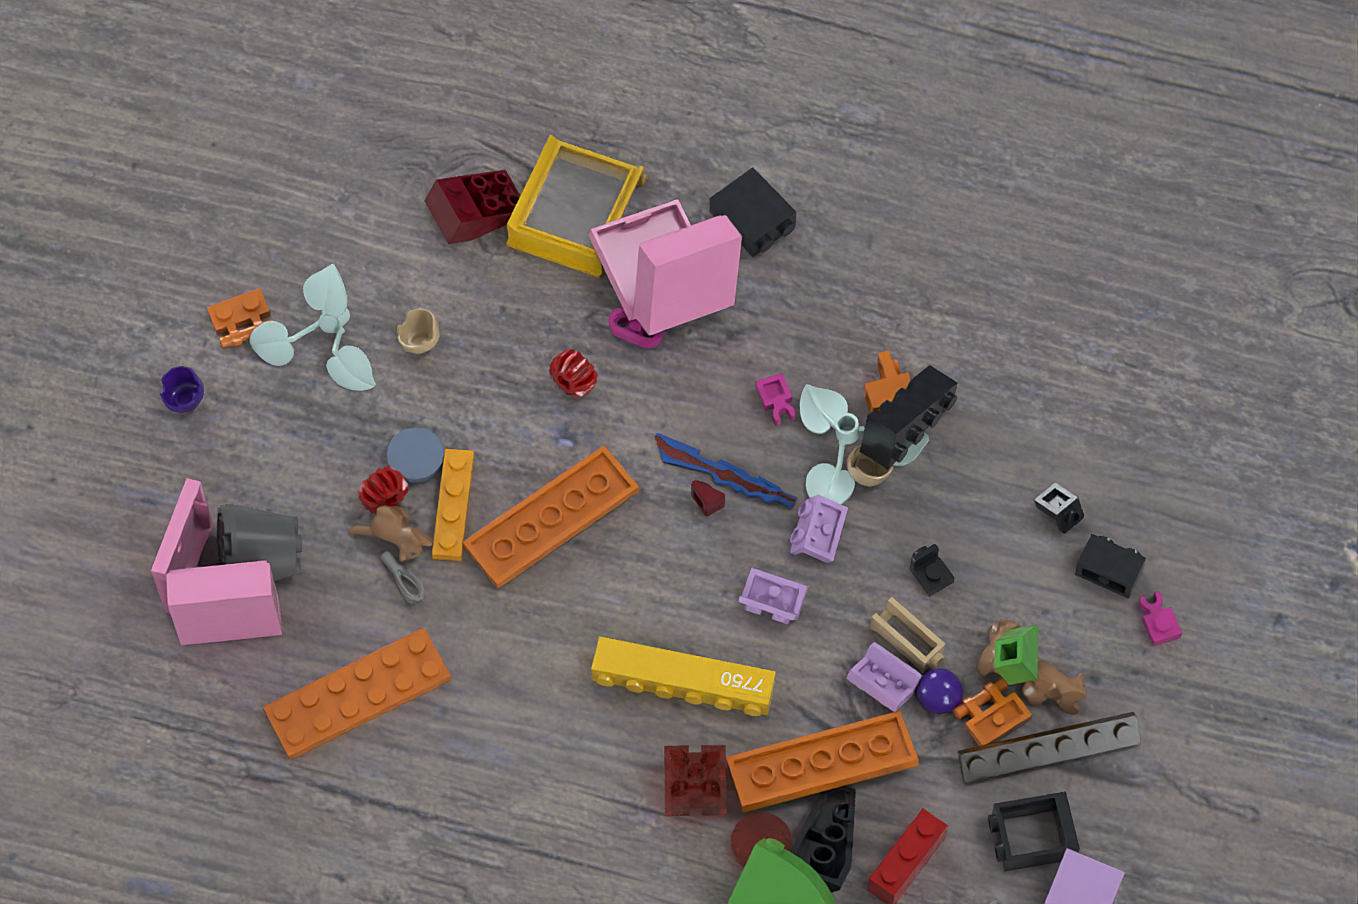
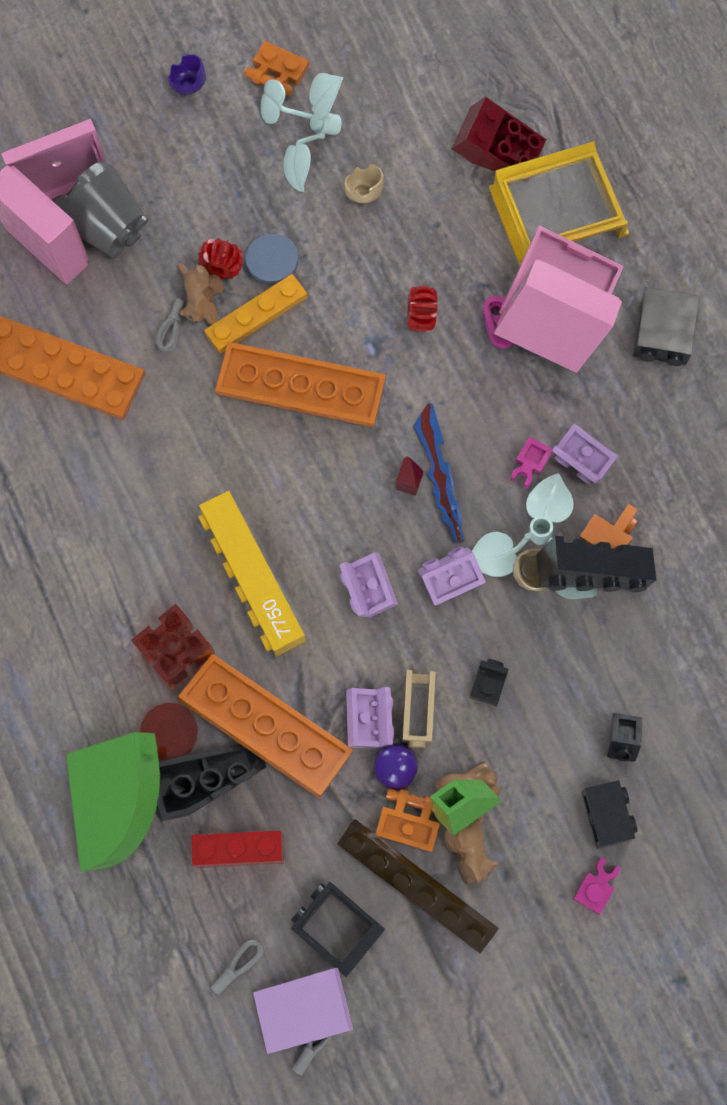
camera: 50 degrees right, 10 degrees up
(806, 353) = (585, 455): none -> lavender bracket

